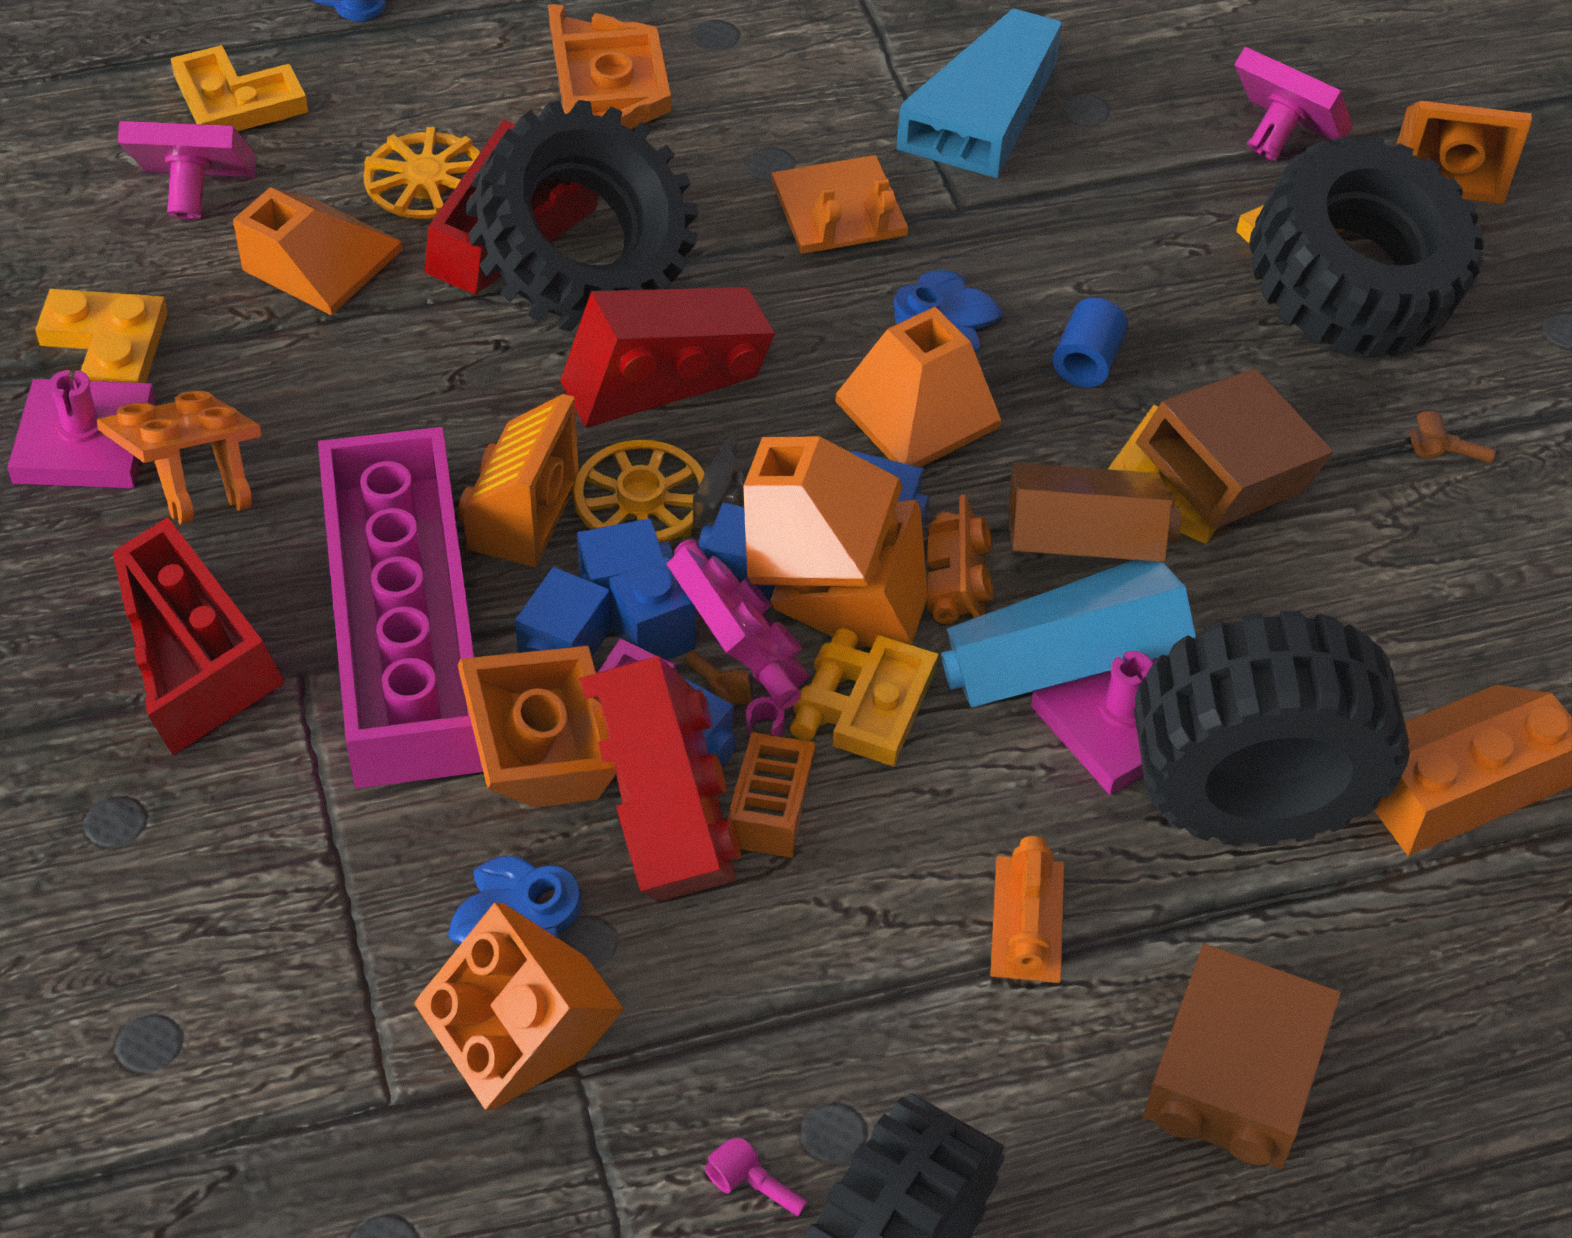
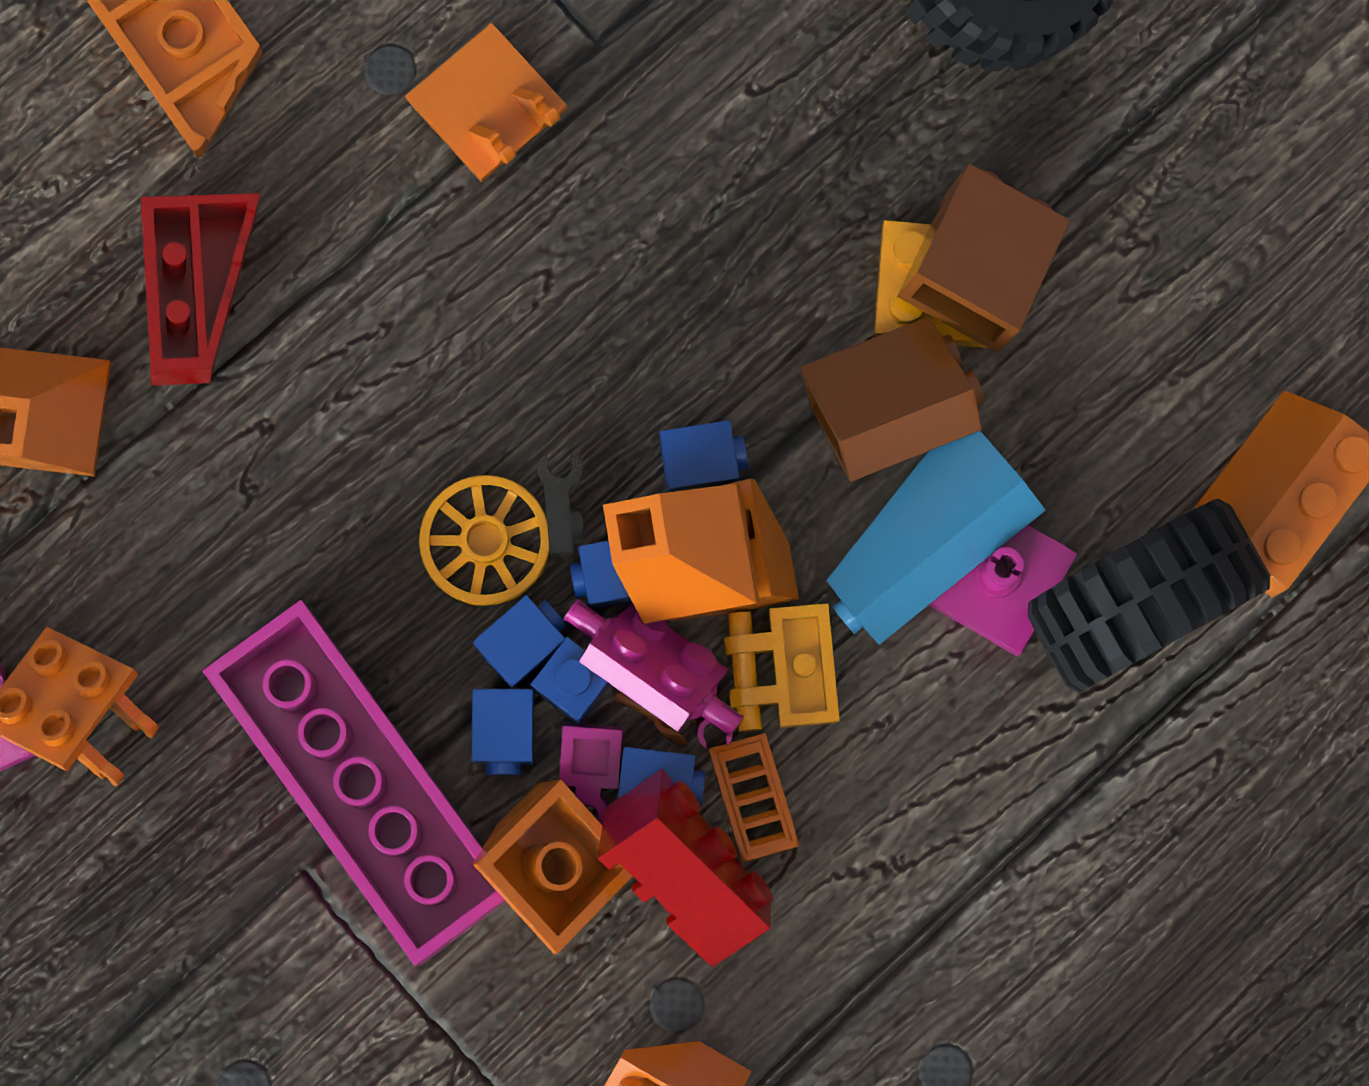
camera: 30 degrees left, 30 degrees up
(189, 637) = (204, 905): red wedge -> none
(423, 174) = (76, 255): light orange wheel -> none
(520, 886) = (604, 1017): blue plate -> none
(523, 484) = (388, 604): orange slope -> none
(607, 161) = (347, 252): black tyre -> none
(662, 348) = (430, 381): red wedge -> none
(920, 391) = (679, 321): orange slope -> none
(947, 291) = (654, 183): blue plate -> none
(962, 545) = (792, 468): orange hinge -> none
(1028, 914) = (1008, 816): orange hinge -> none
(1090, 342) = (798, 172): blue brick -> none
(1242, 1057) = (1223, 869): dark orange brick -> none
(1434, 441) = (1135, 133): dark orange hand -> none

